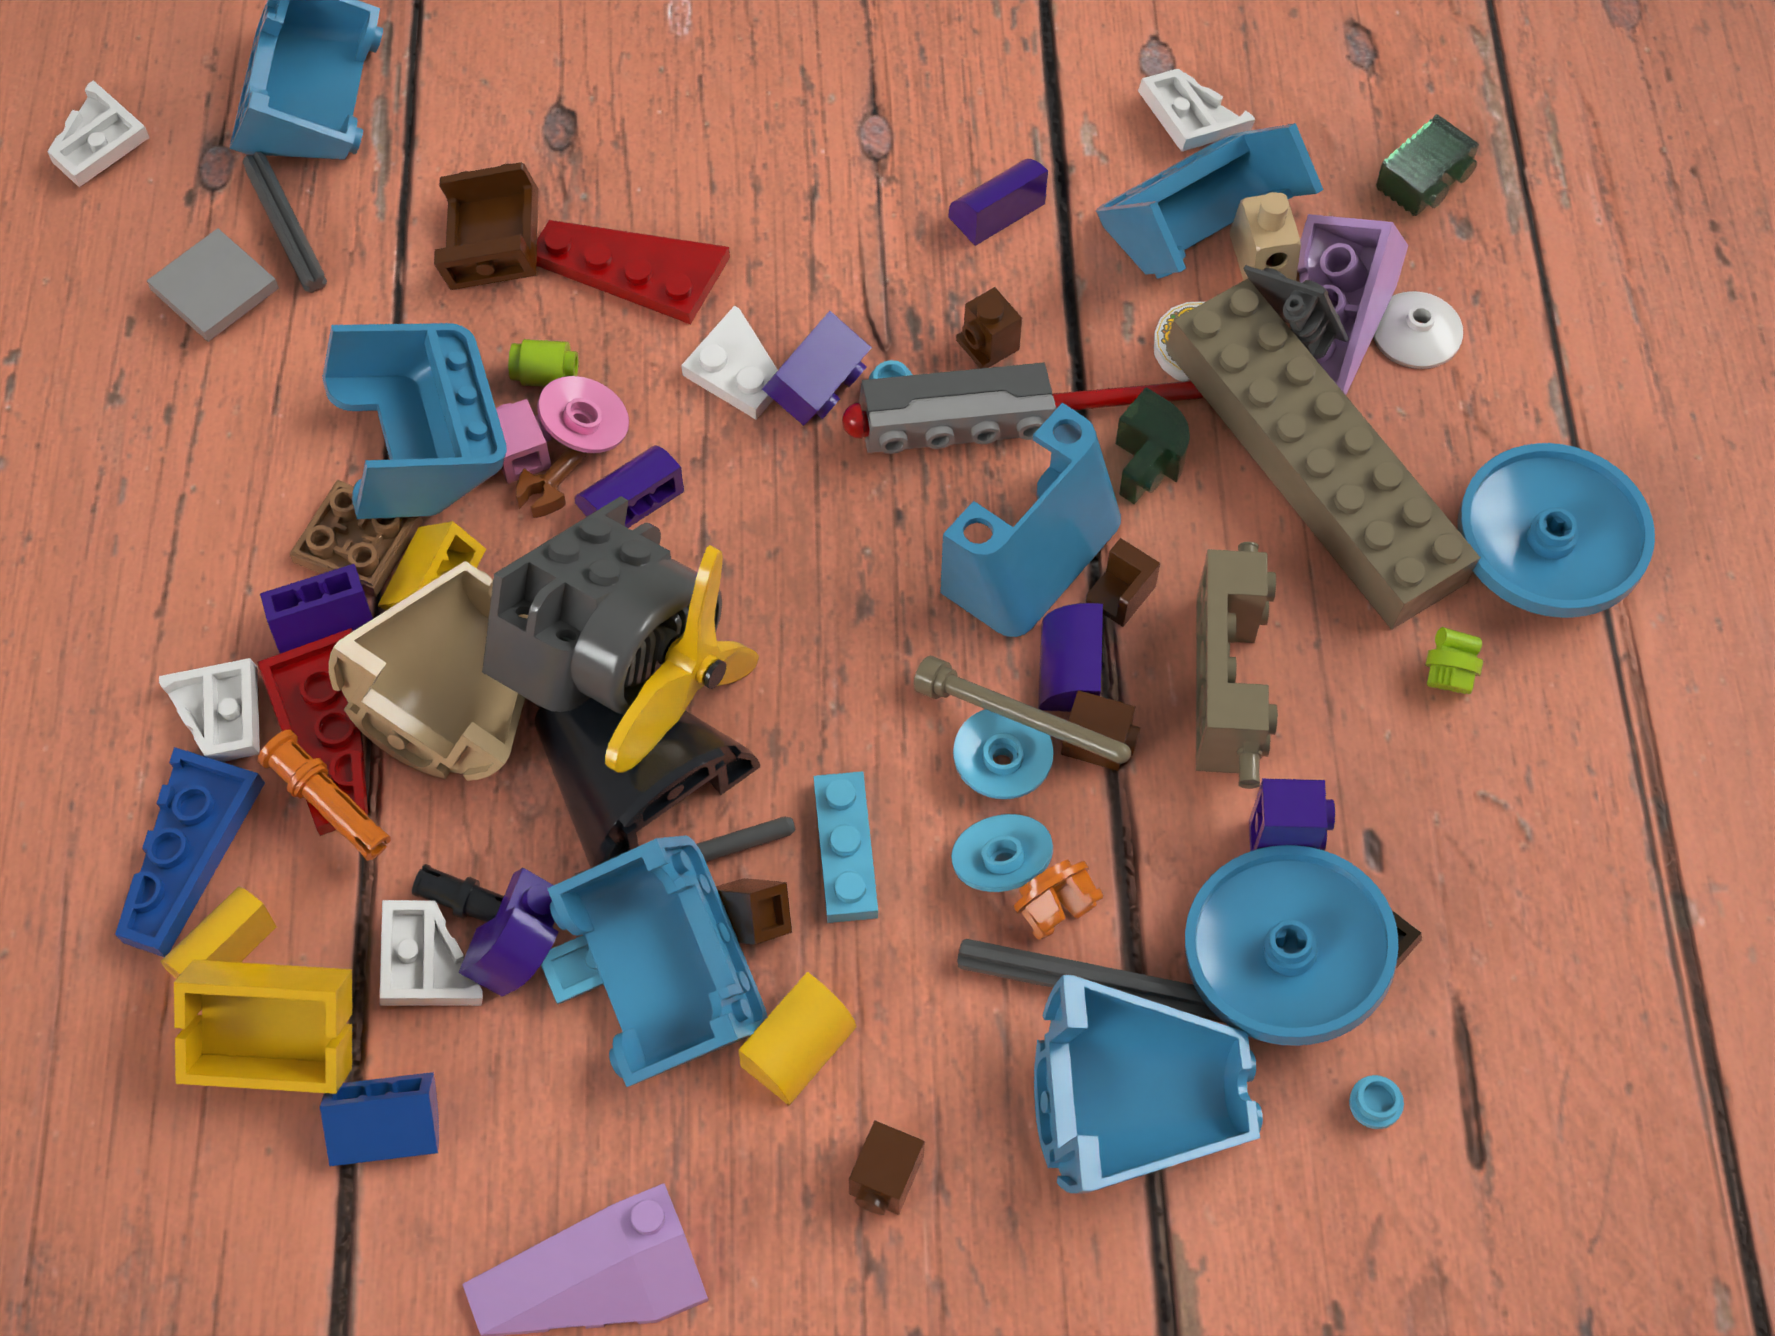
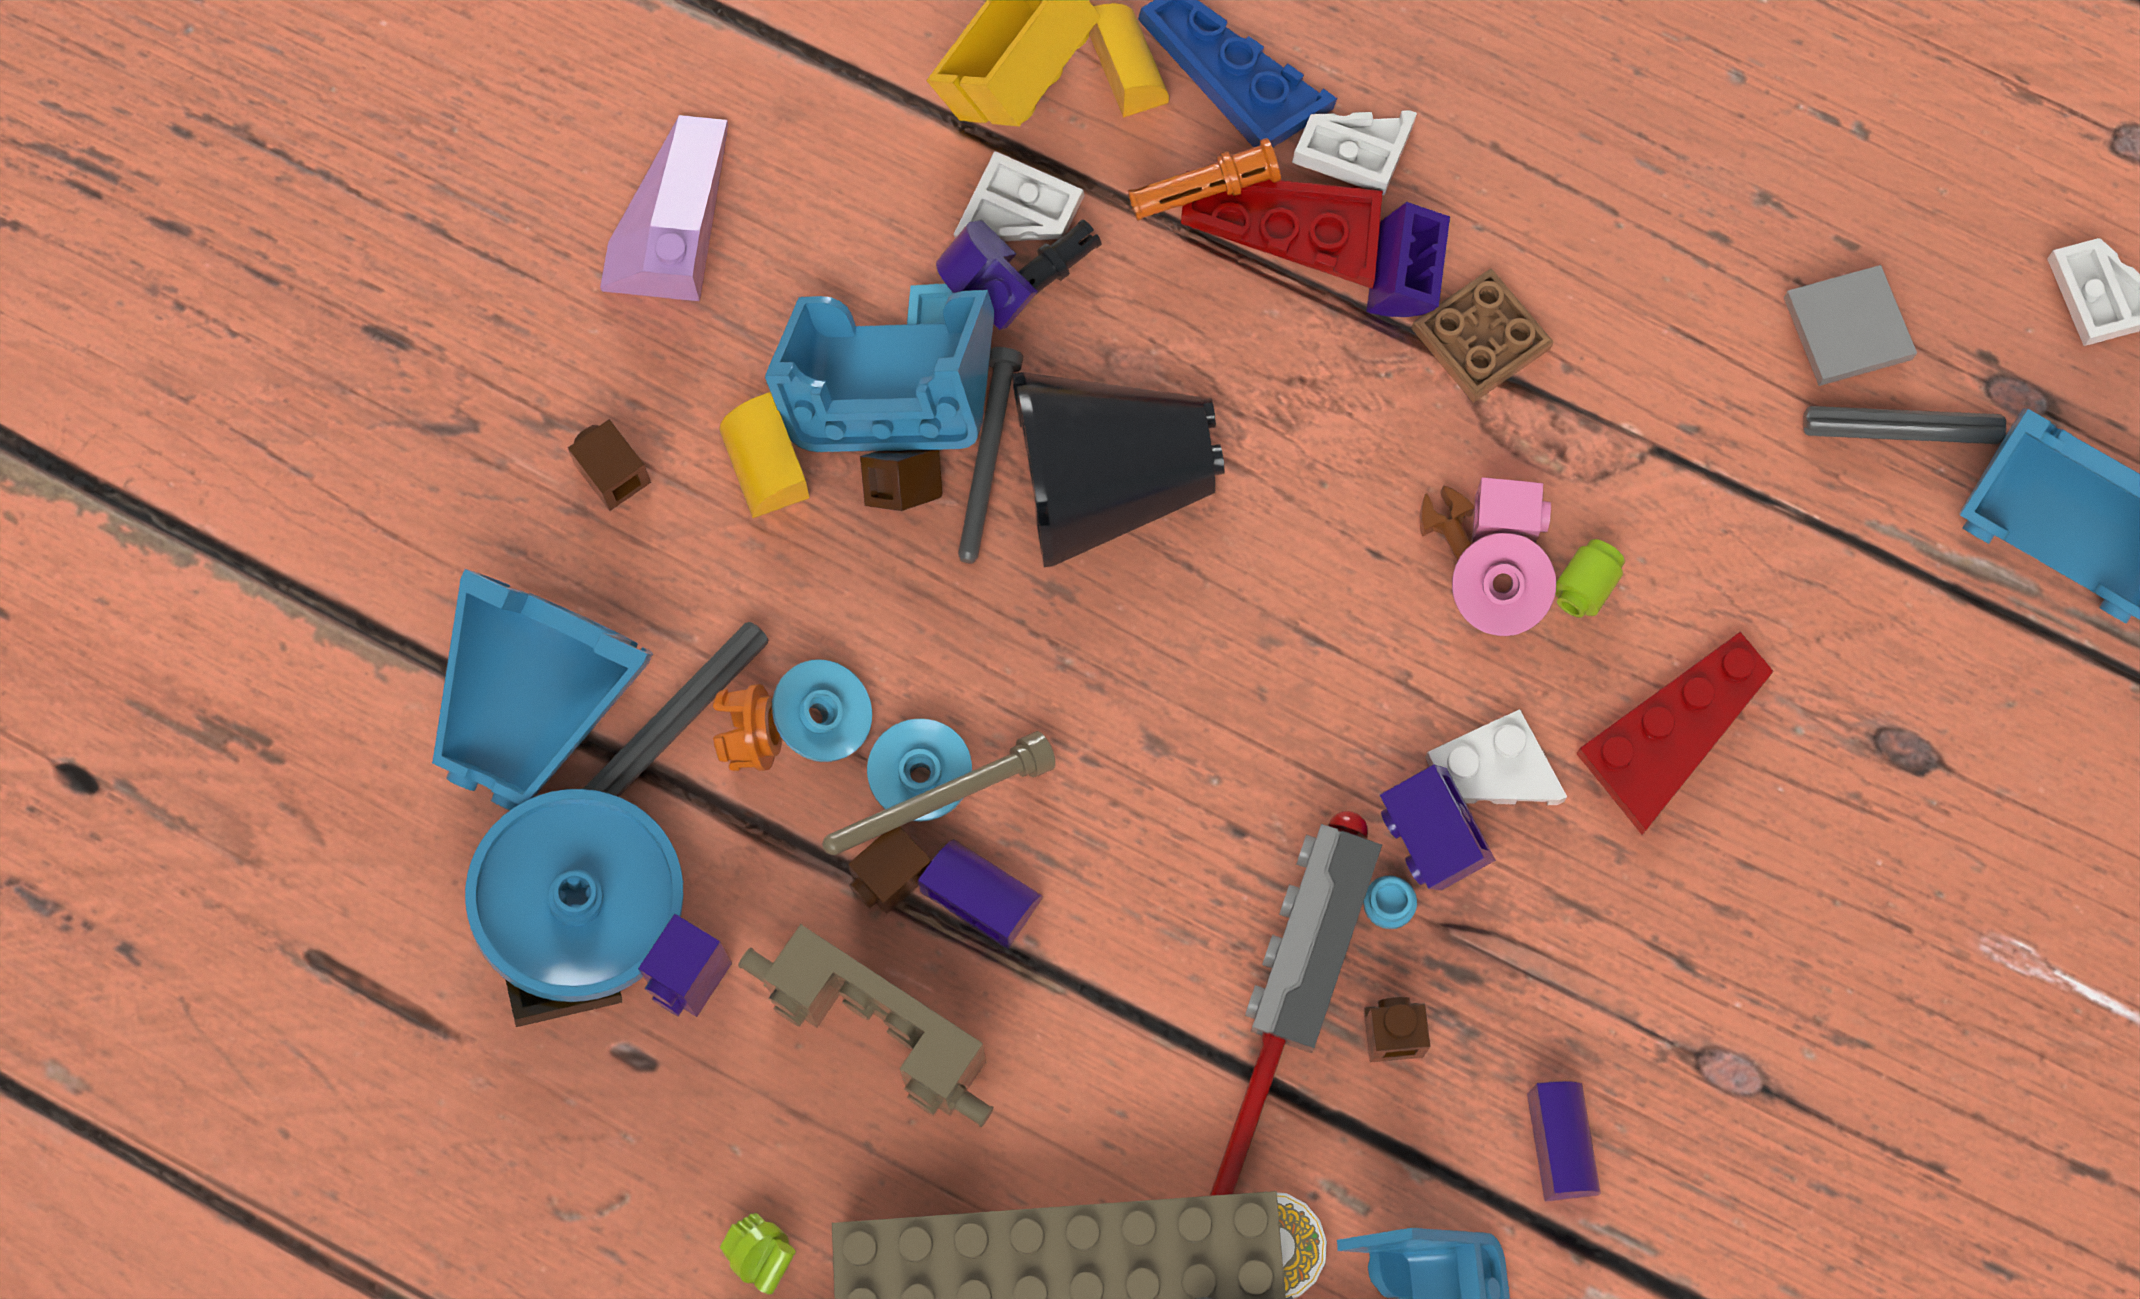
camera: 120 degrees right, 10 degrees up
(381, 1119) = (895, 117): blue brick -> none
(421, 684) = (1276, 335): tan cone -> none
(430, 409) = (1567, 440): dark azure windscreen -> none
(430, 555) = (1396, 375): yellow brick -> none
(489, 226) = (1787, 606): reddish brown panel -> none
(612, 626) = (1209, 462): dark grey brick -> none
(645, 481) = (1397, 589): dark purple brick -> none
(845, 847) = (918, 593): medium azure plate -> none
(1030, 565) = (1122, 986): dark azure windscreen -> none
(1125, 583) = (1032, 989): reddish brown panel -> none
(1158, 440) = (1170, 1125): clear green brick -> none
(1376, 1102) = (410, 897): medium azure plate -> none

